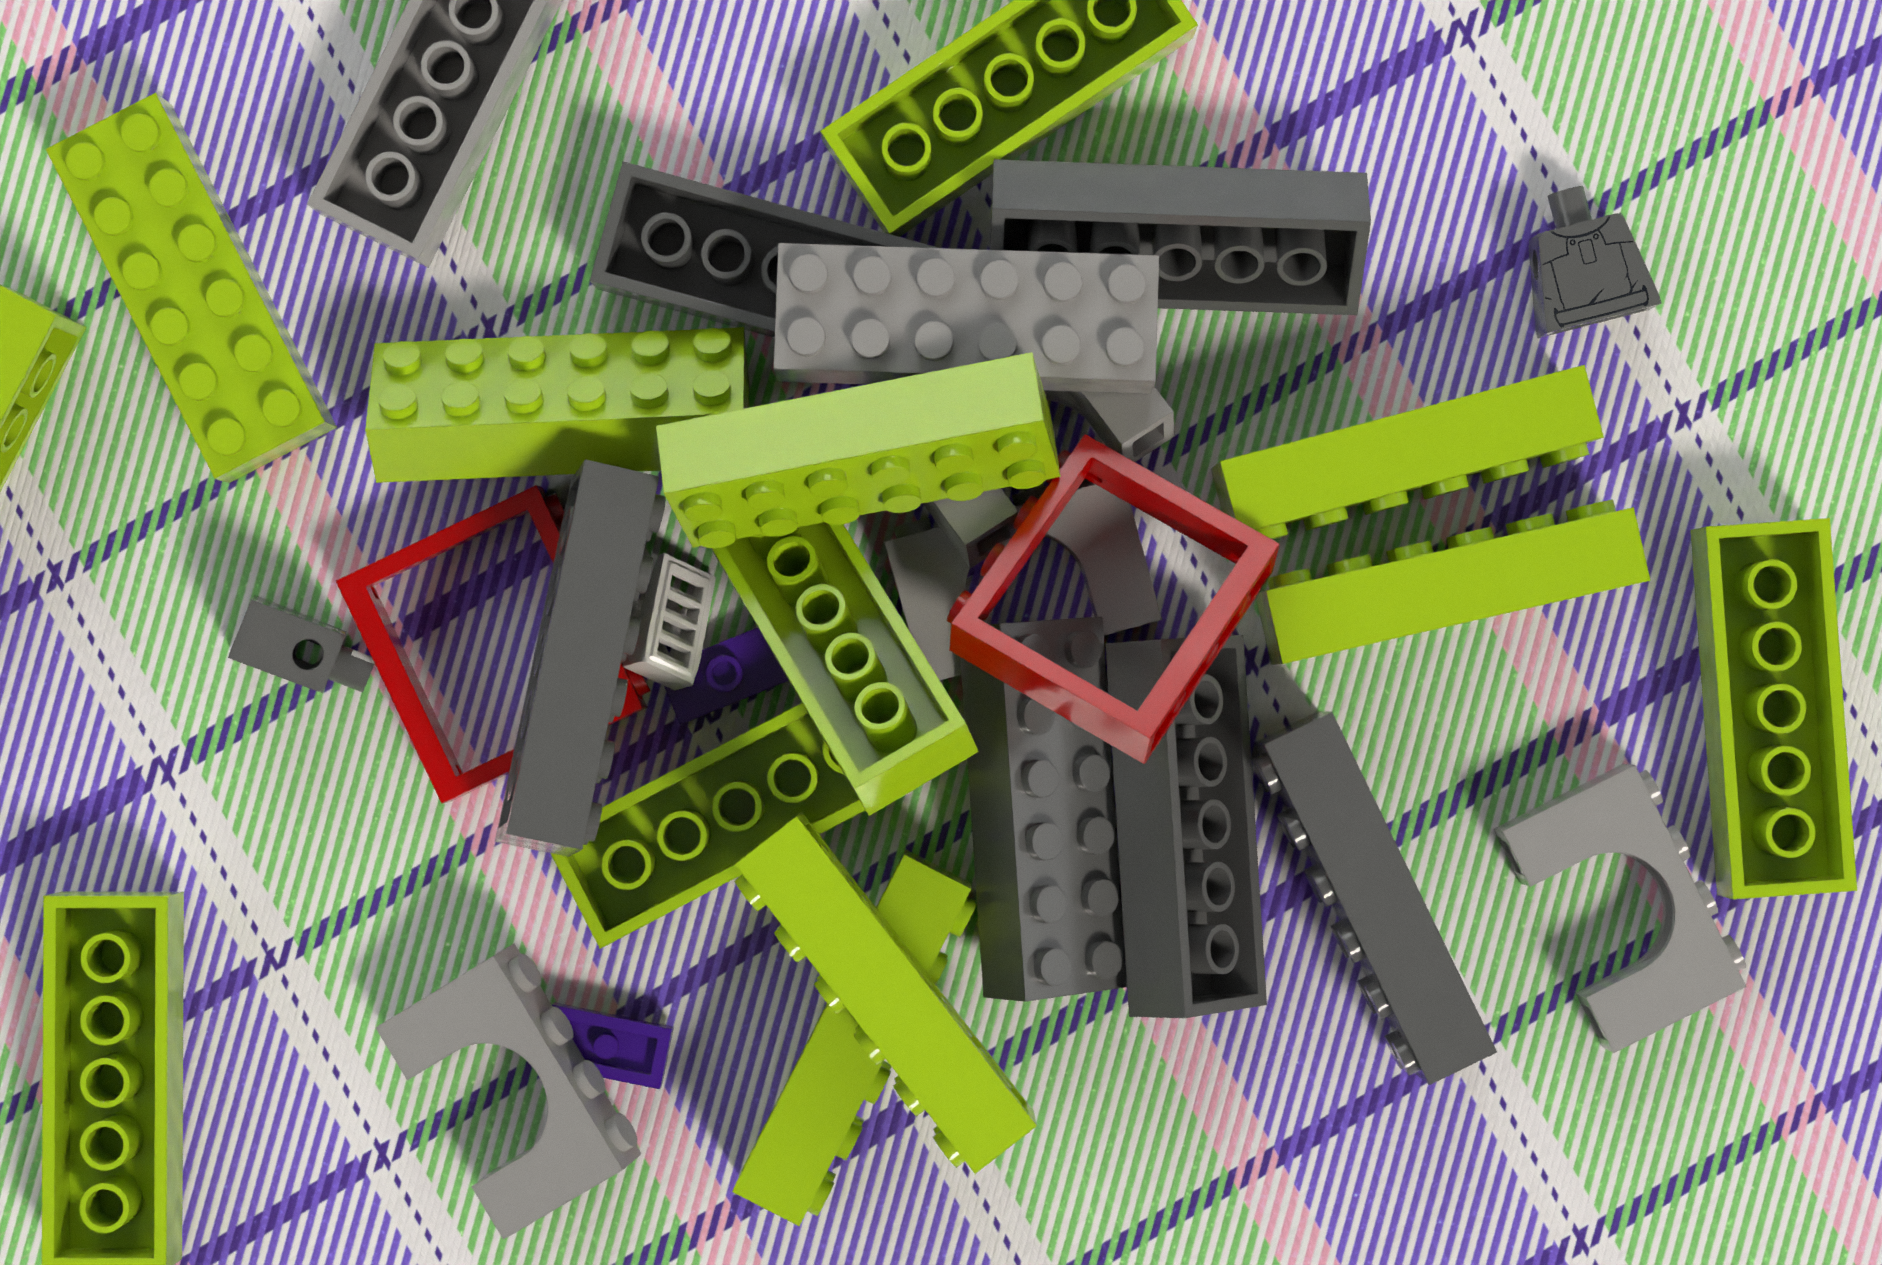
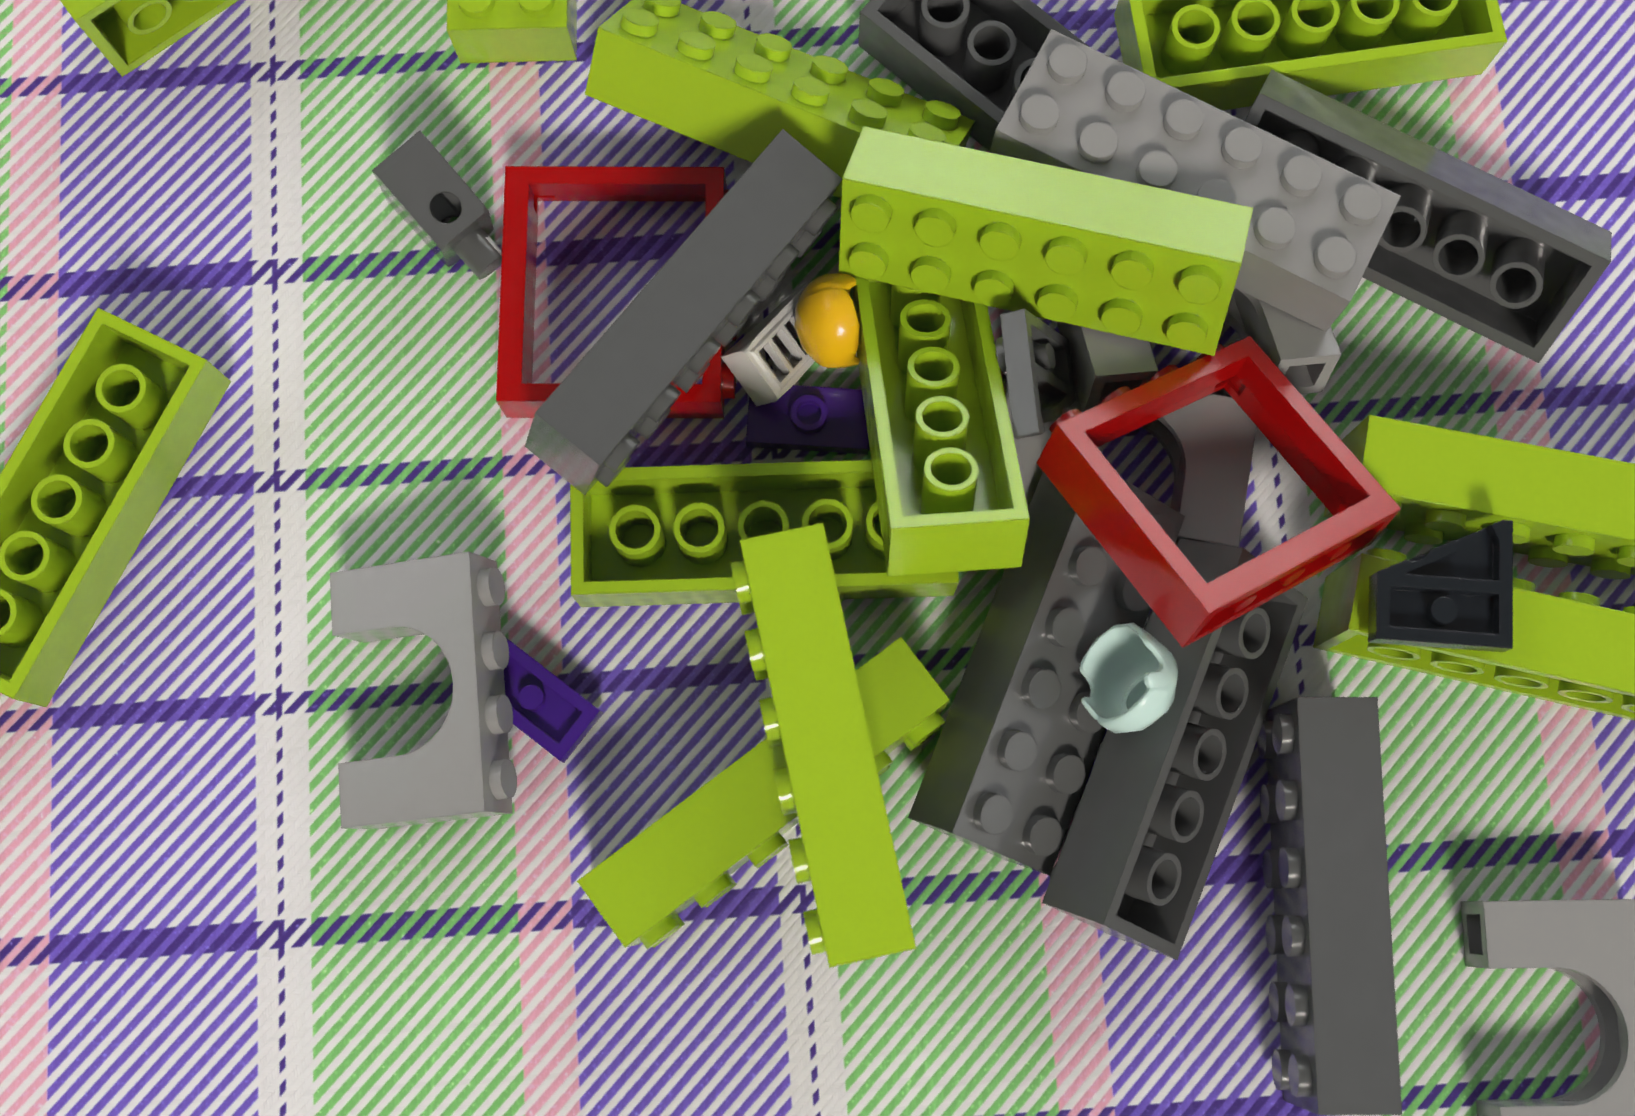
camera: 25 degrees right, 10 degrees down
(703, 593) = (828, 321): none -> yellow hair
(914, 566) = (1036, 371): none -> dark grey wing
(1115, 799) = (1128, 679): none -> light aqua hair
(1351, 599) = (1448, 595): none -> black wing

